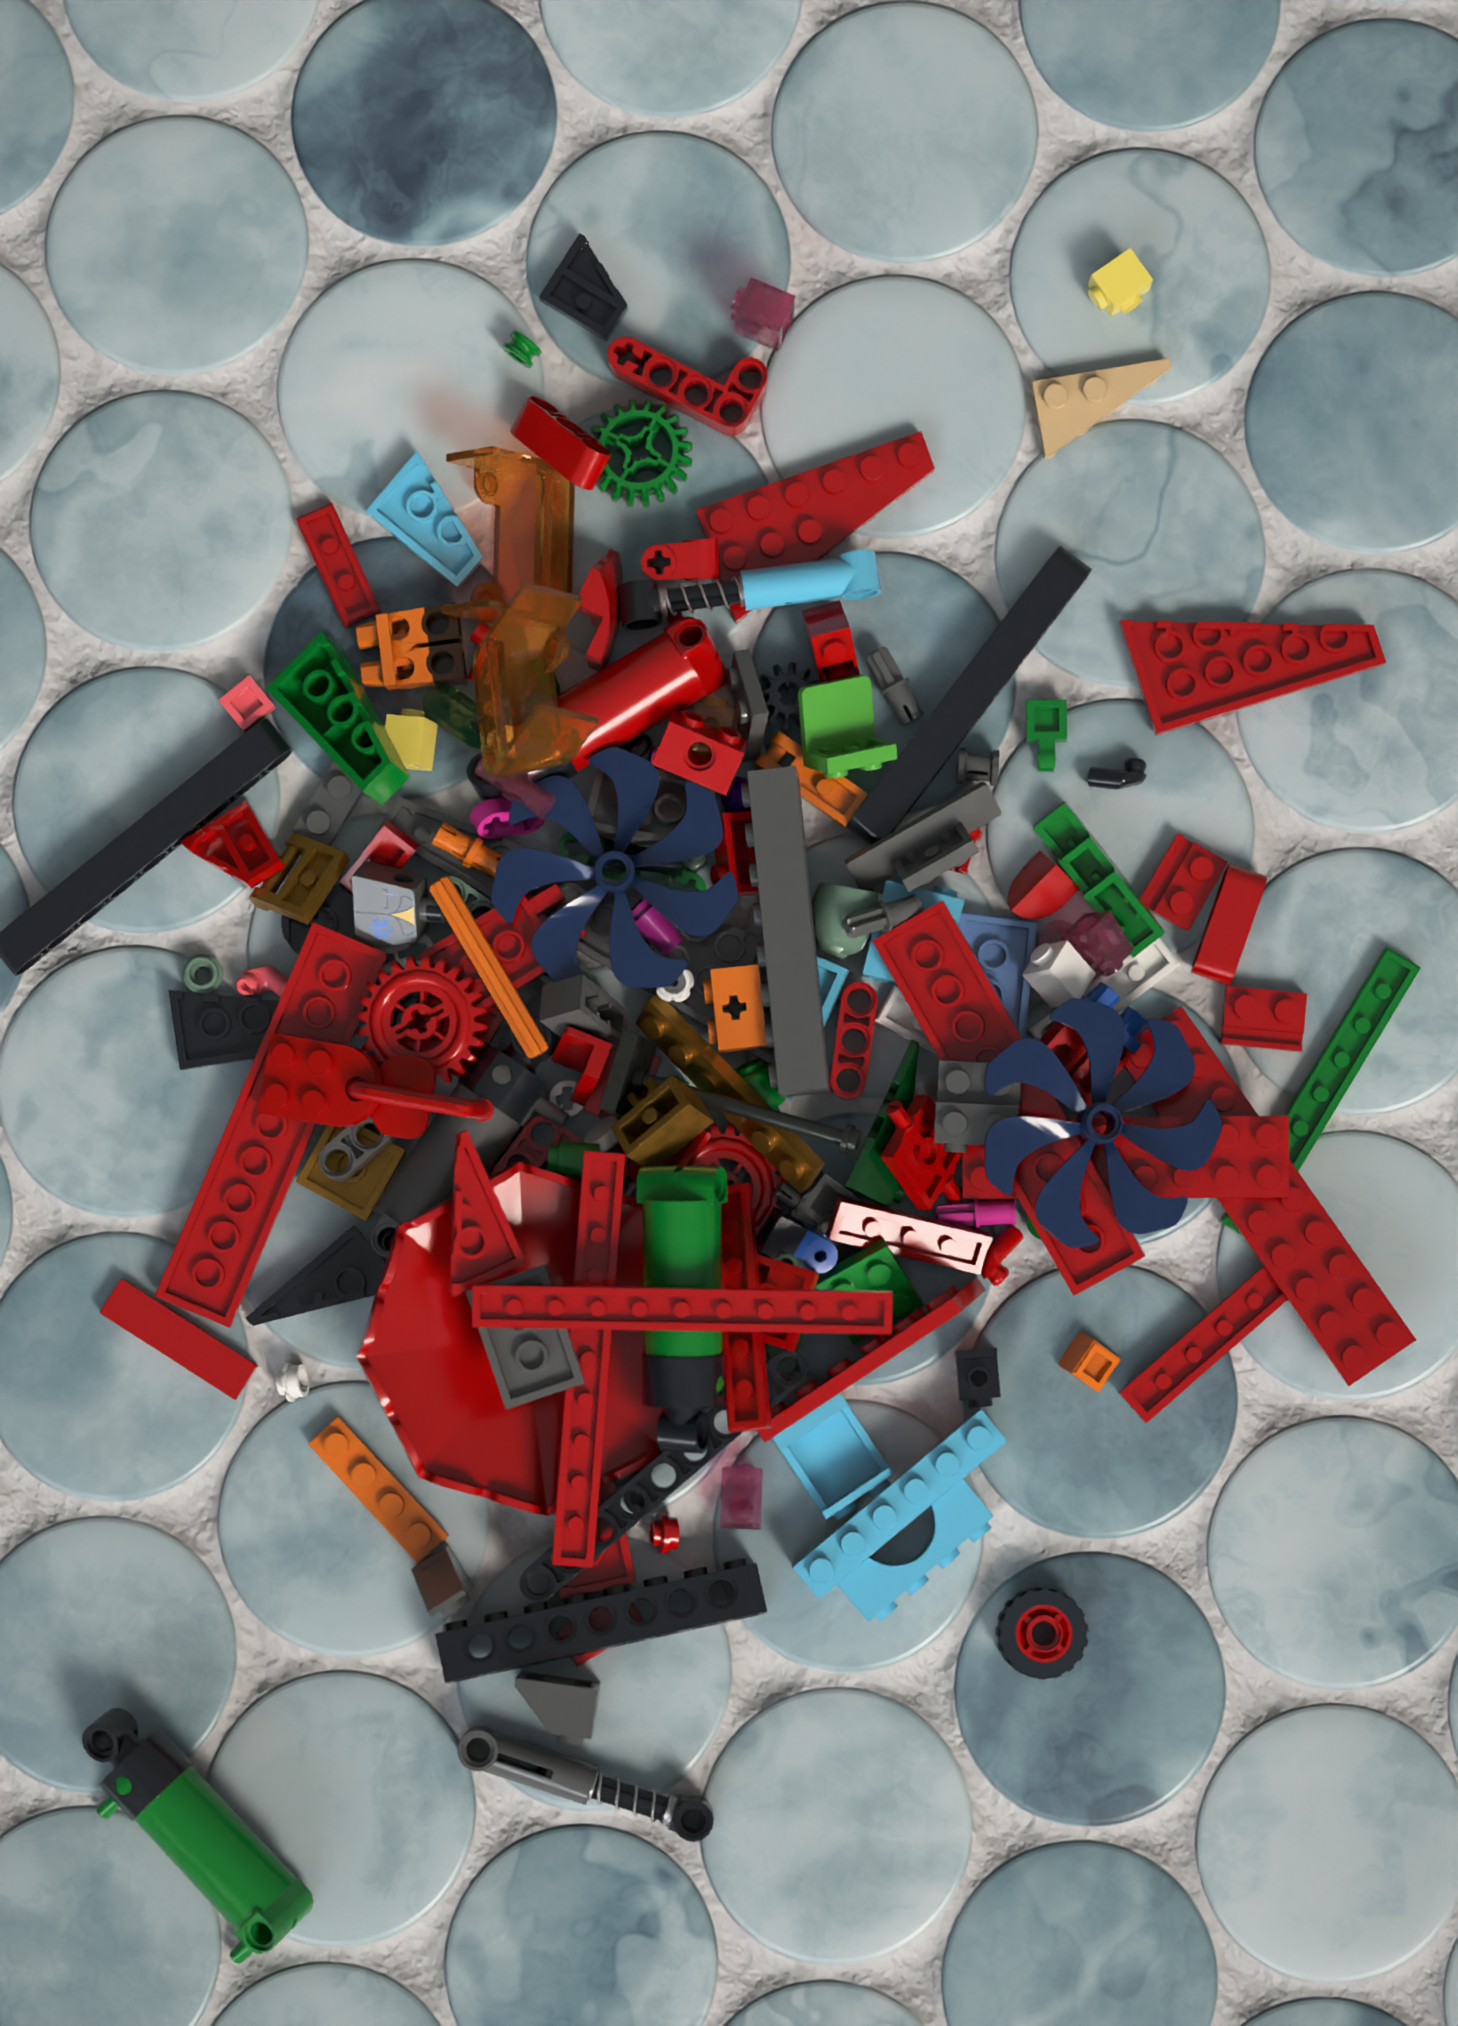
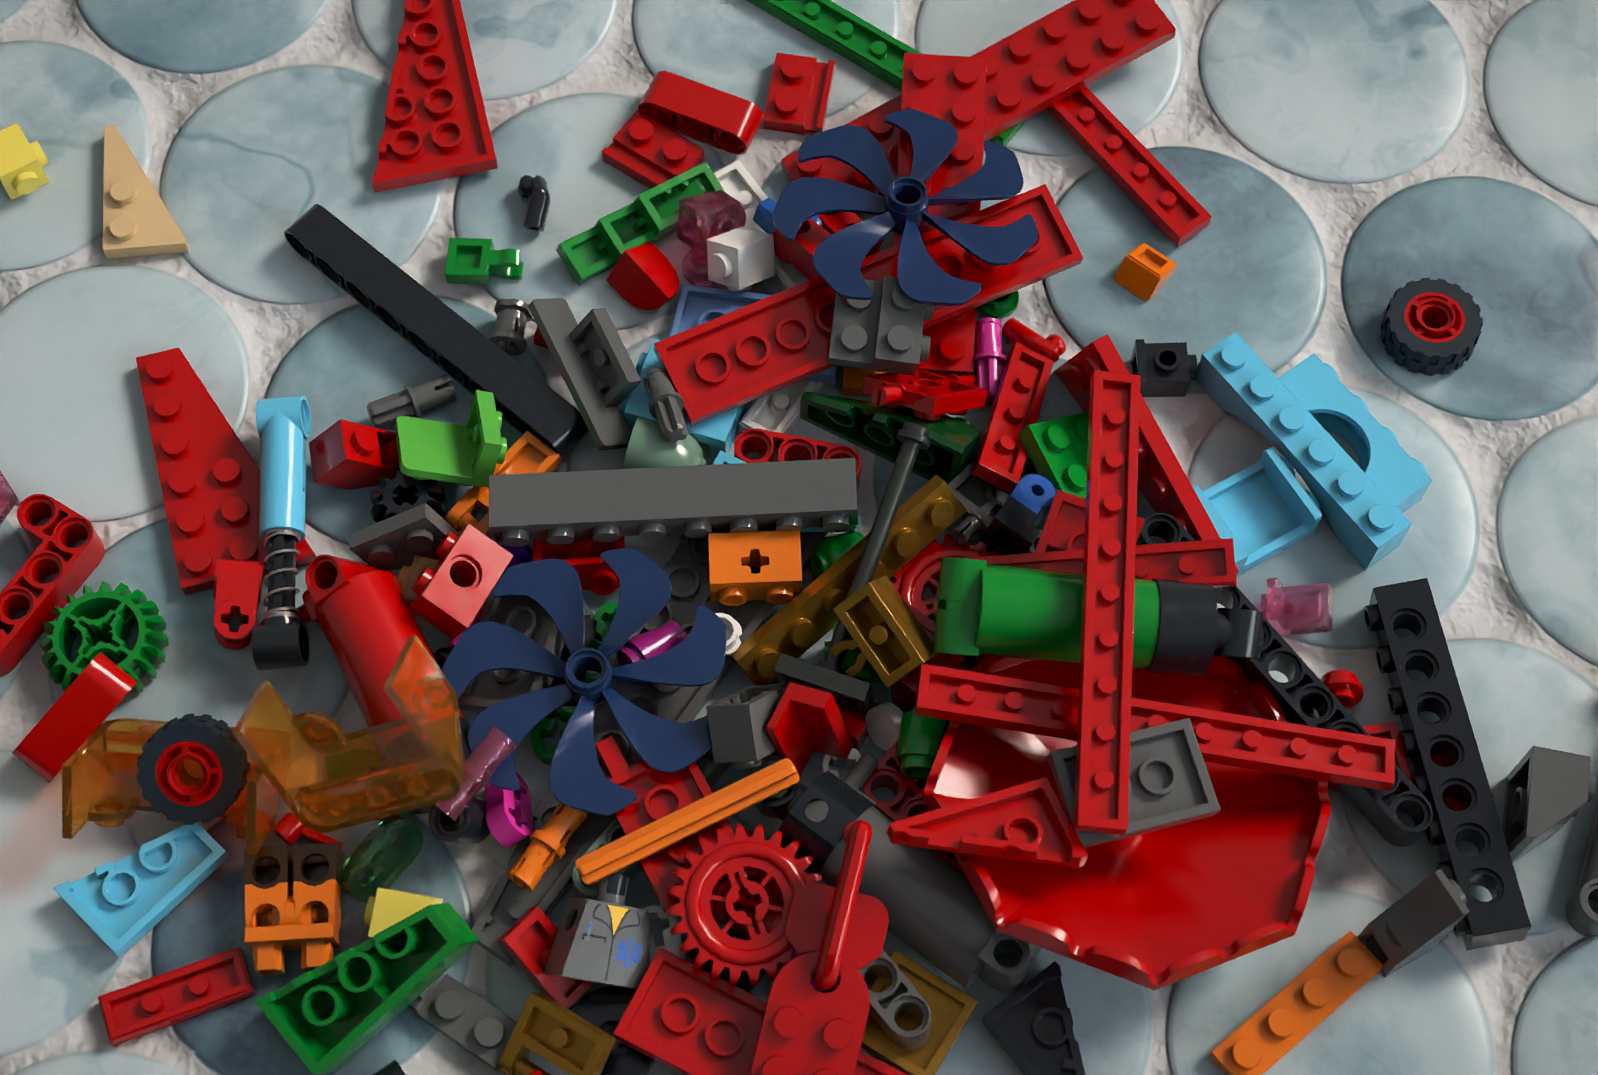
camera: 90 degrees left, 20 degrees down
(519, 547) = (173, 789): none -> black wheel
(602, 606) = (293, 682): red slope -> none

